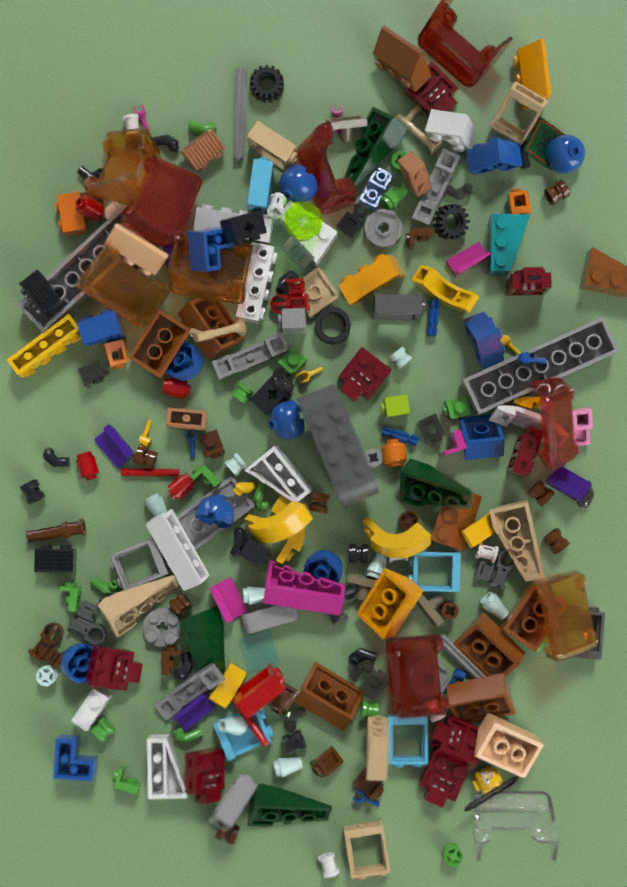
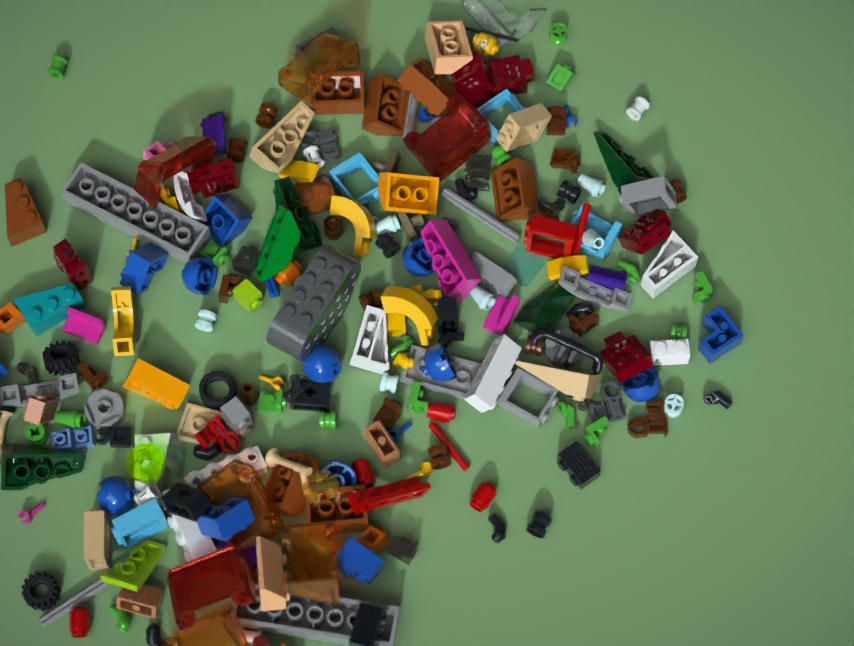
camera: 125 degrees left, 20 degrees down
(28, 715) = (717, 398): none -> black arm
(45, 346) = (411, 602): yellow brick -> none
(64, 530) = (548, 476): reddish brown pin -> none
(114, 446) = (449, 489): dark purple panel -> none
(139, 390) = (387, 495): none -> red fence
(155, 504) = (471, 421): light aqua cone -> none
(156, 628) = (567, 343): none -> black piece
(181, 339) = (328, 484): none -> clear yellow hips
(219, 95) = (79, 622): none -> red brick
(227, 160) = (137, 567): none -> lime wing
(251, 356) = (290, 435): light grey slope -> none
(310, 353) = (249, 394): none -> reddish brown cone
(312, 154) = (83, 492): clear red windscreen -> none
(329, 651) = (480, 215): none -> light grey axle
(346, 124) = (33, 498): dark tan tile -> none
(363, 375) = (241, 339): dark red piece -> none
(366, 829) = (594, 103): tan window -> none
(398, 307) = (165, 347): dark grey window -> none
(408, 822) = (560, 77): none -> bright green bracket
(415, 454) = (278, 245): none -> green wedge
(416, 393) = (227, 284): none -> reddish brown bracket
(433, 317) = (152, 320): blue axle -> none
(444, 379) = (199, 275): none -> blue cylinder
(454, 611) = (379, 152): reddish brown bush -> none
(457, 443) = (245, 229): dark pink panel -> none
(494, 605) = (350, 126): light aqua cone -> none
(524, 358) = (137, 221): blue hand -> none

